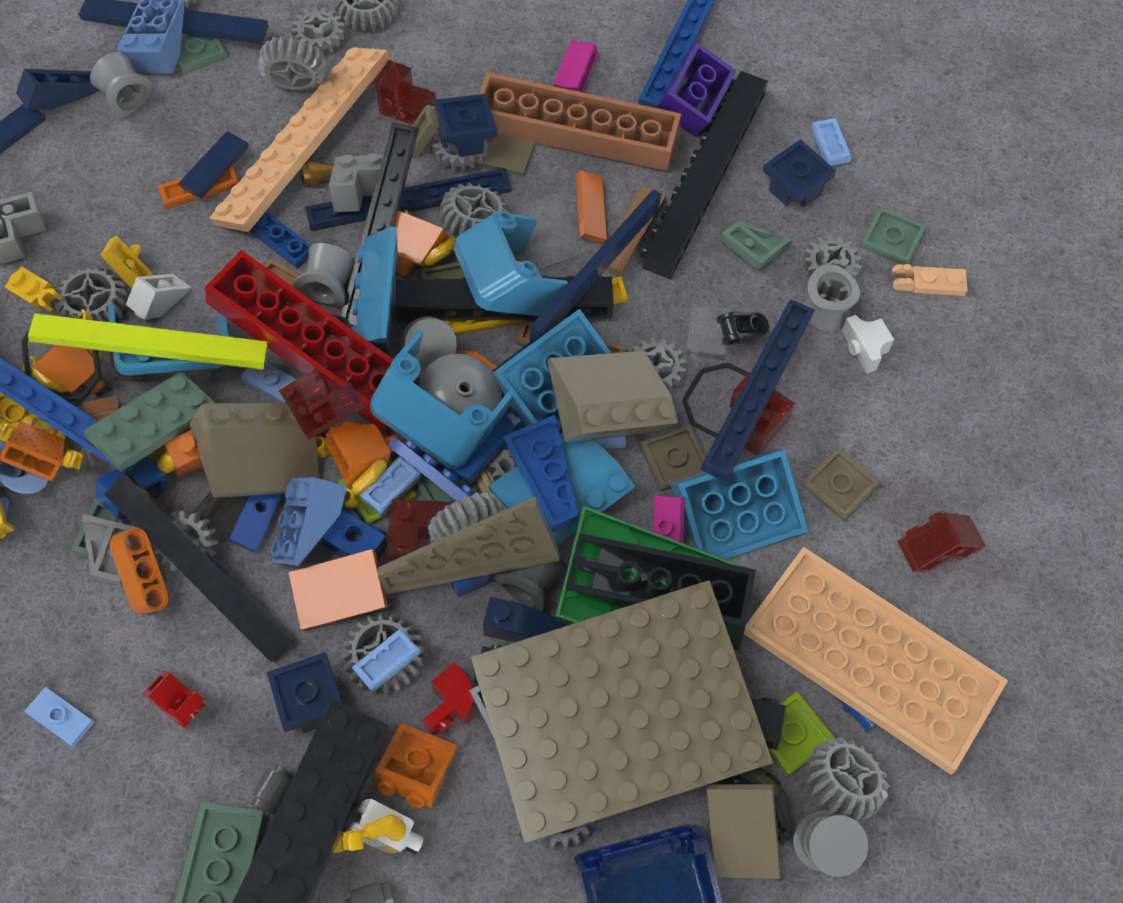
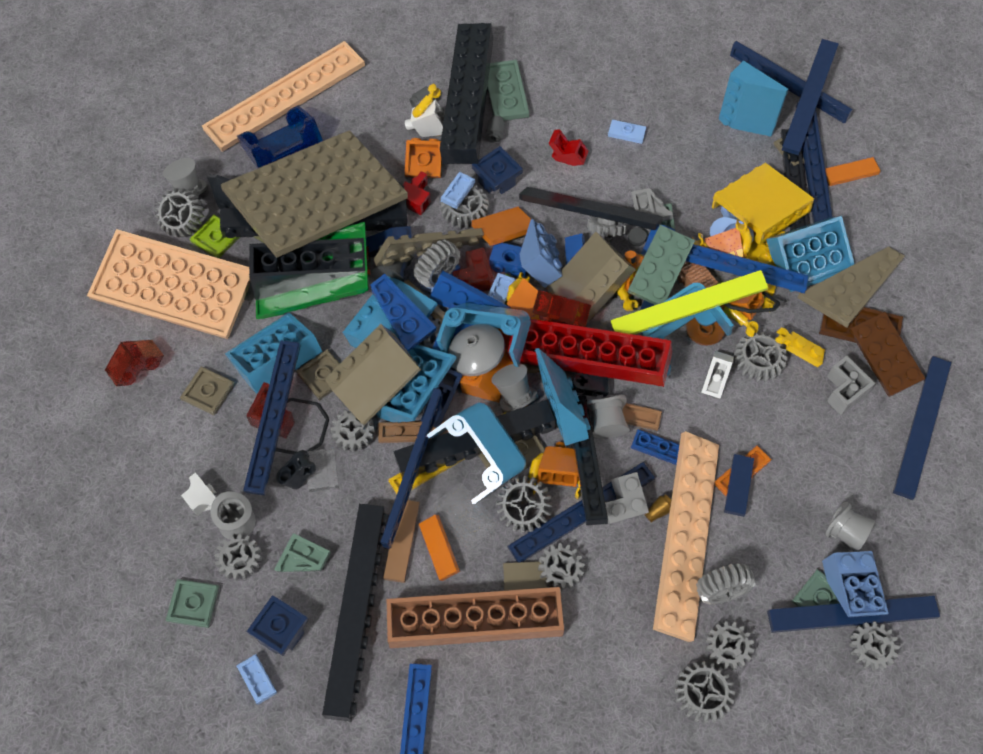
camera: 165 degrees right, 0 degrees up
(53, 88) = (896, 513): dark blue slope -> none
(125, 260) = (748, 380): yellow plate -> none
(151, 578) = (622, 196): orange beam -> none
(398, 96) = (623, 594): clear red brick -> none
(427, 125) = (594, 561): dark tan tile -> none
(466, 122) = (559, 566): dark blue panel -> none
(577, 66) = (495, 683): dark pink piece -> none
(669, 516) = (315, 320): dark pink plate -> none
(697, 88) = (382, 681): dark purple brick -> none
(744, 830) = (231, 167): dark tan tile -> none
(930, 280) = (157, 571): light nougat hinge -> none

